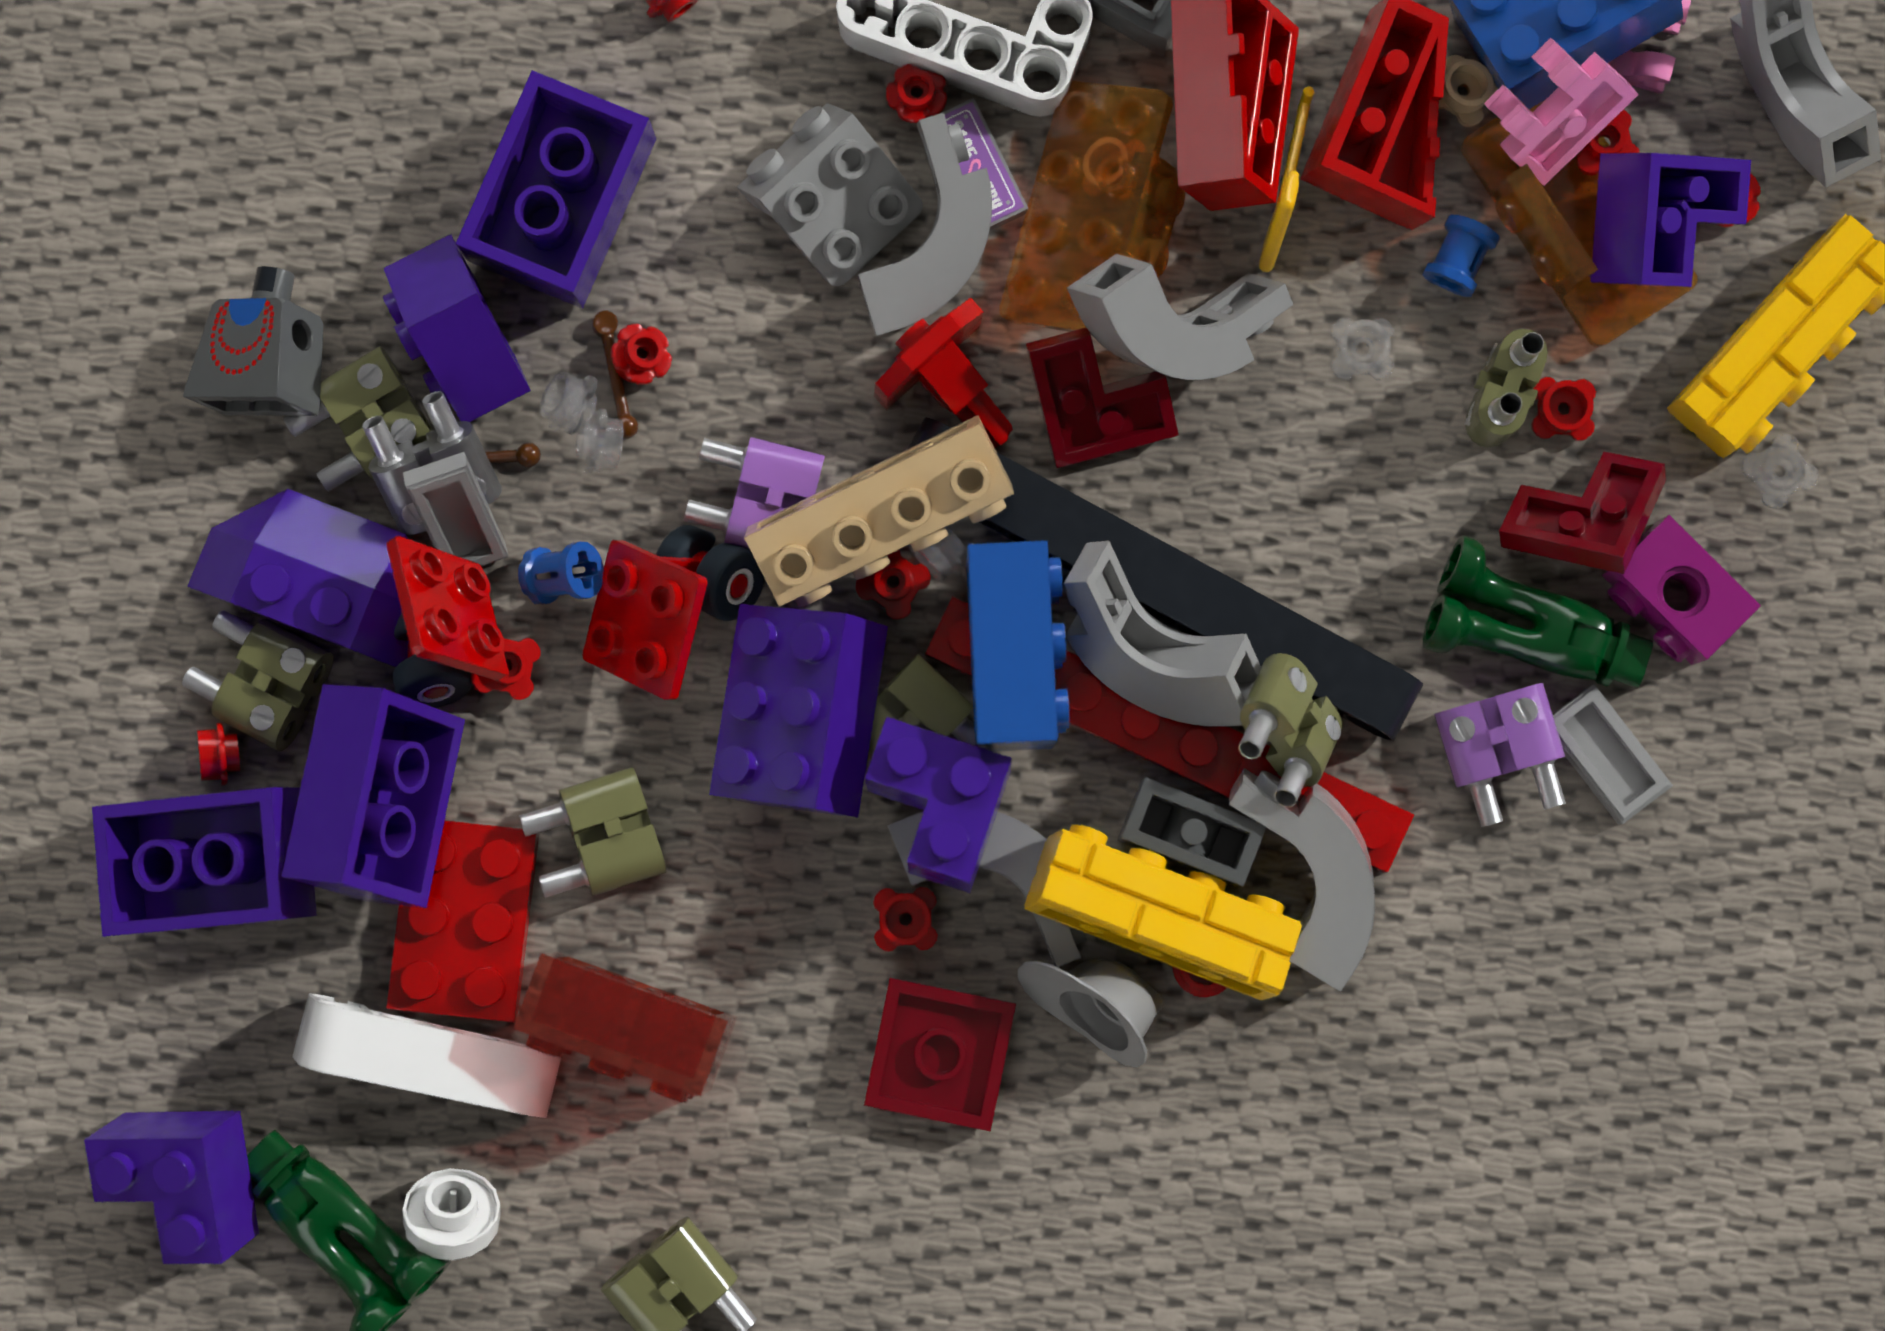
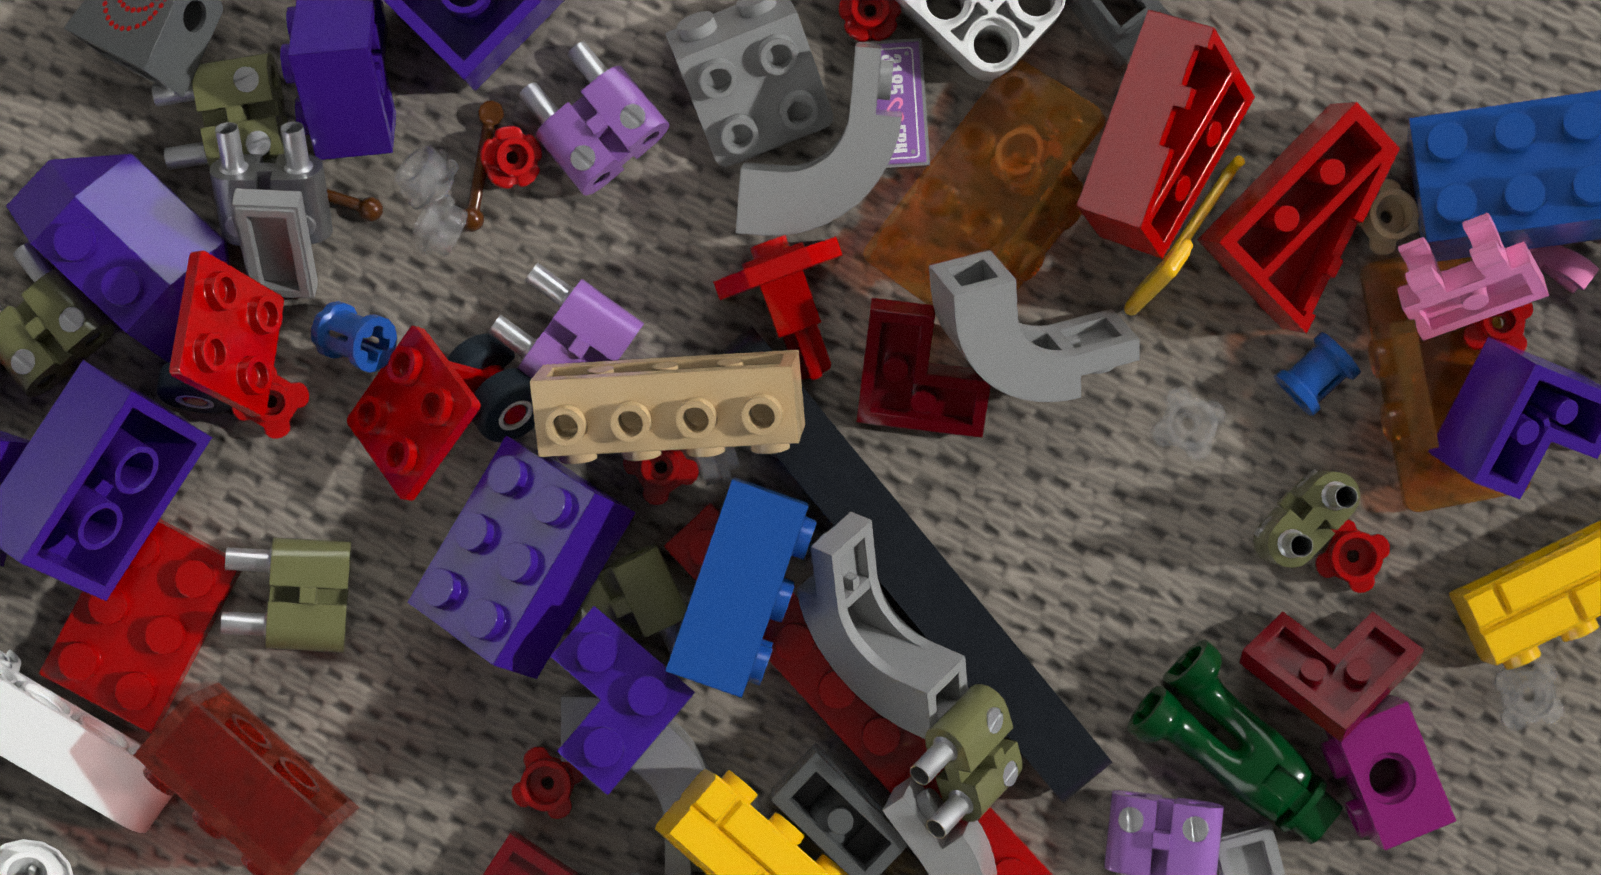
camera: 20 degrees right, 5 degrees up
(713, 295) = (601, 127): none -> medium lavender piece

